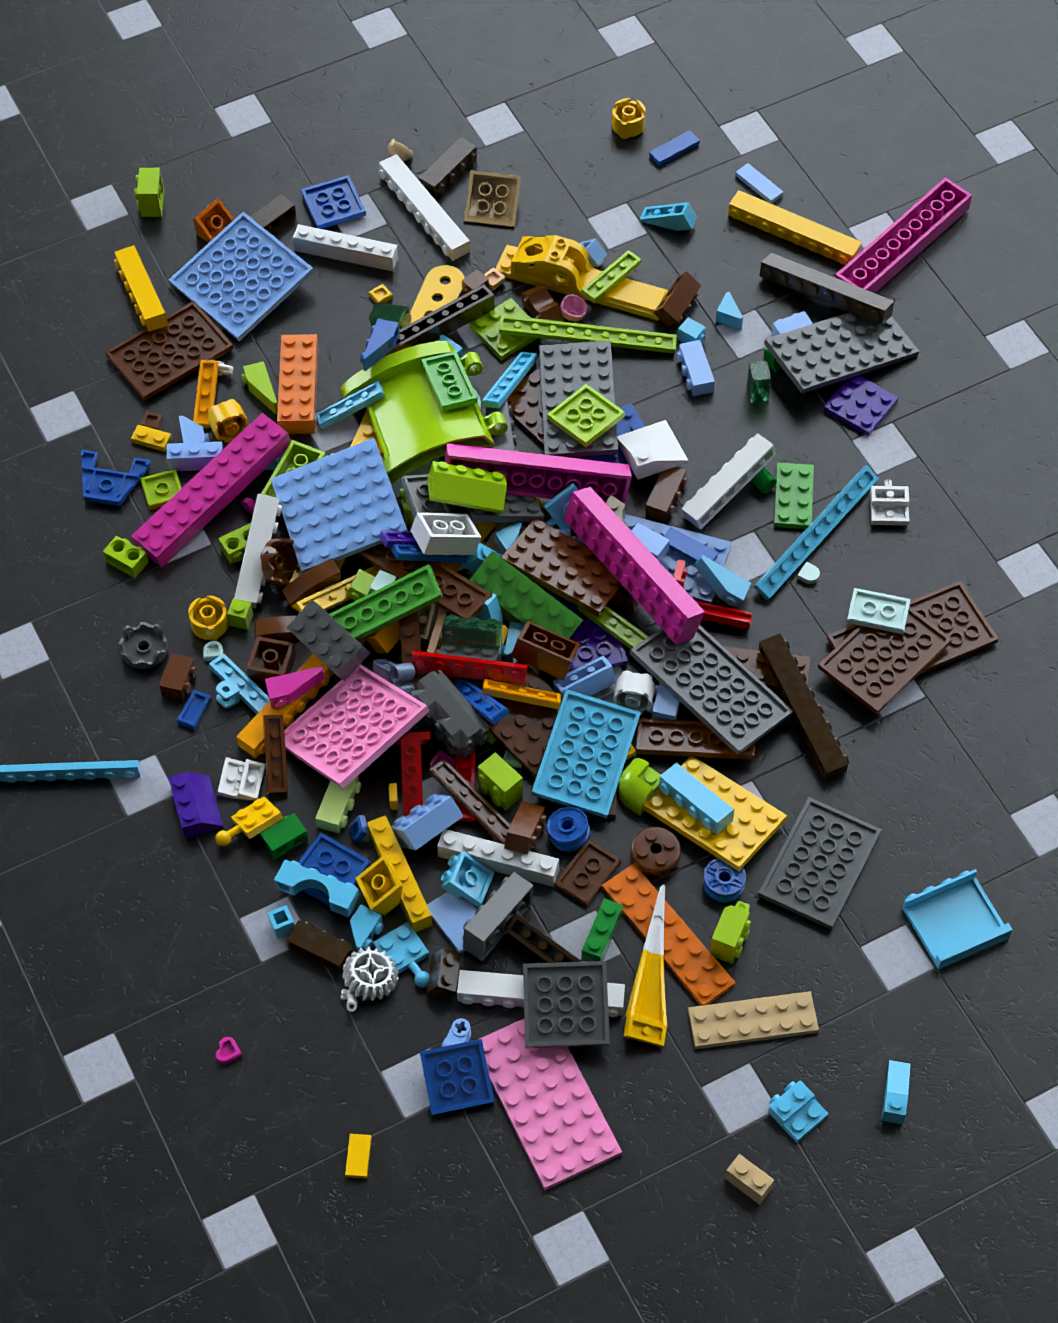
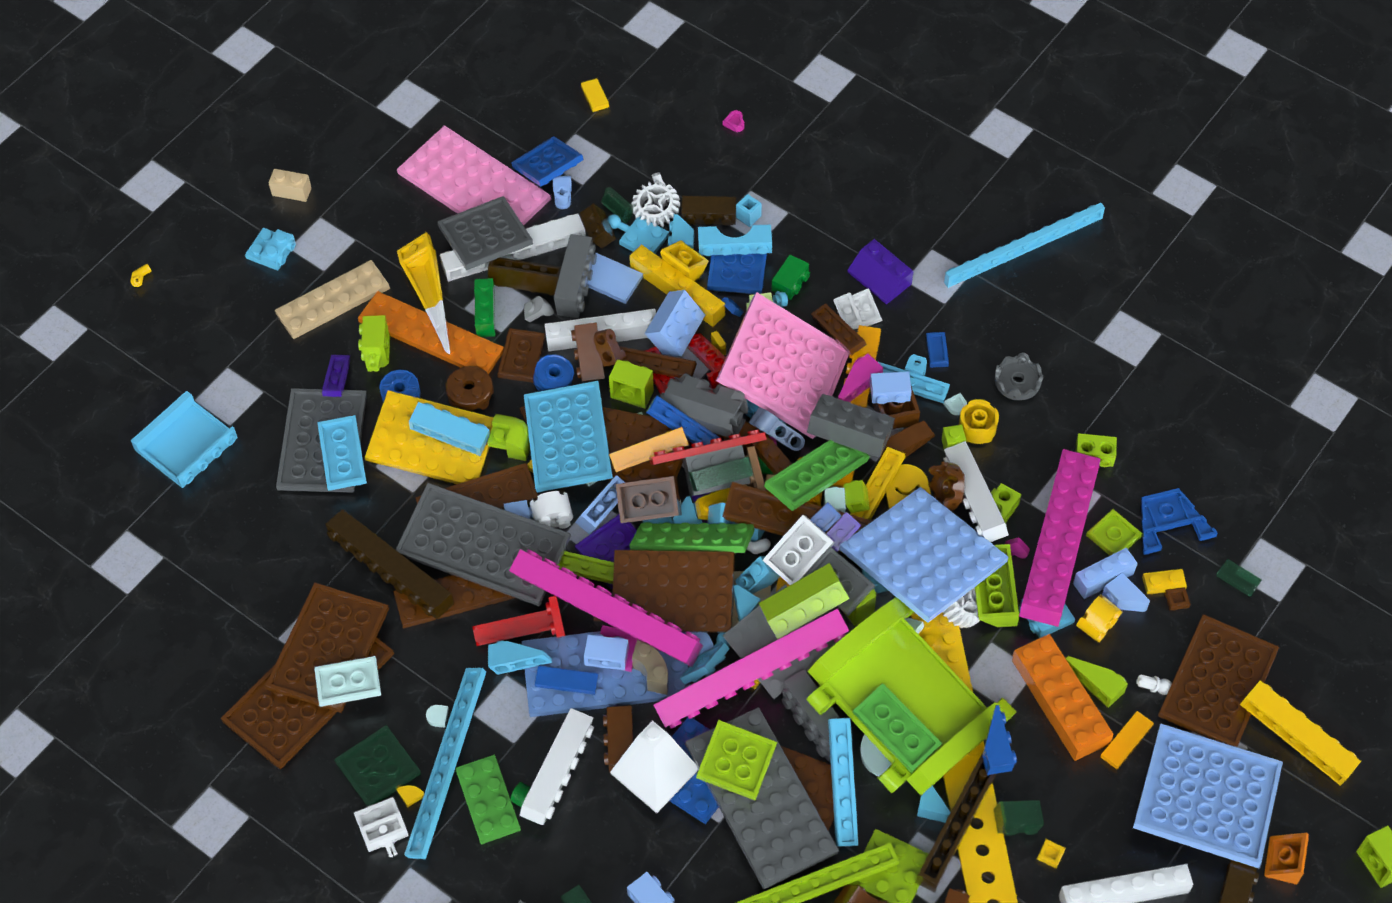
camera: 155 degrees right, 0 degrees up
(90, 417) = (1239, 577): none -> clear green tile
(178, 676) = (969, 365): reddish brown brick -> none
(205, 391) = (1145, 646): light orange tile -> none
(251, 821) = (822, 277): yellow plate -> none
(265, 343) = (1127, 740): none -> light orange tile
(270, 659) = (890, 387): none -> light blue brick
(308, 817) = (780, 299): none -> medium azure plate
(312, 581) = (904, 484): reddish brown slope -> none
(350, 405) = (990, 689): medium azure tile -> none
(409, 995) = (617, 204): none -> clear green tile
(467, 878) = (617, 297): medium azure plate -> none
(506, 811) = (608, 347): none -> reddish brown leg
(550, 910) = (537, 308): none -> light grey plate
(782, 917) = (336, 375): none -> dark purple plate
(807, 829) = (341, 452): none -> medium azure plate
(856, 522) = (410, 794): none -> yellow tile
(876, 551) = (377, 766): none -> clear green plate
(896, 1092) = (194, 289): medium azure slope -> none
(954, 1140) = (138, 275): none -> yellow arm

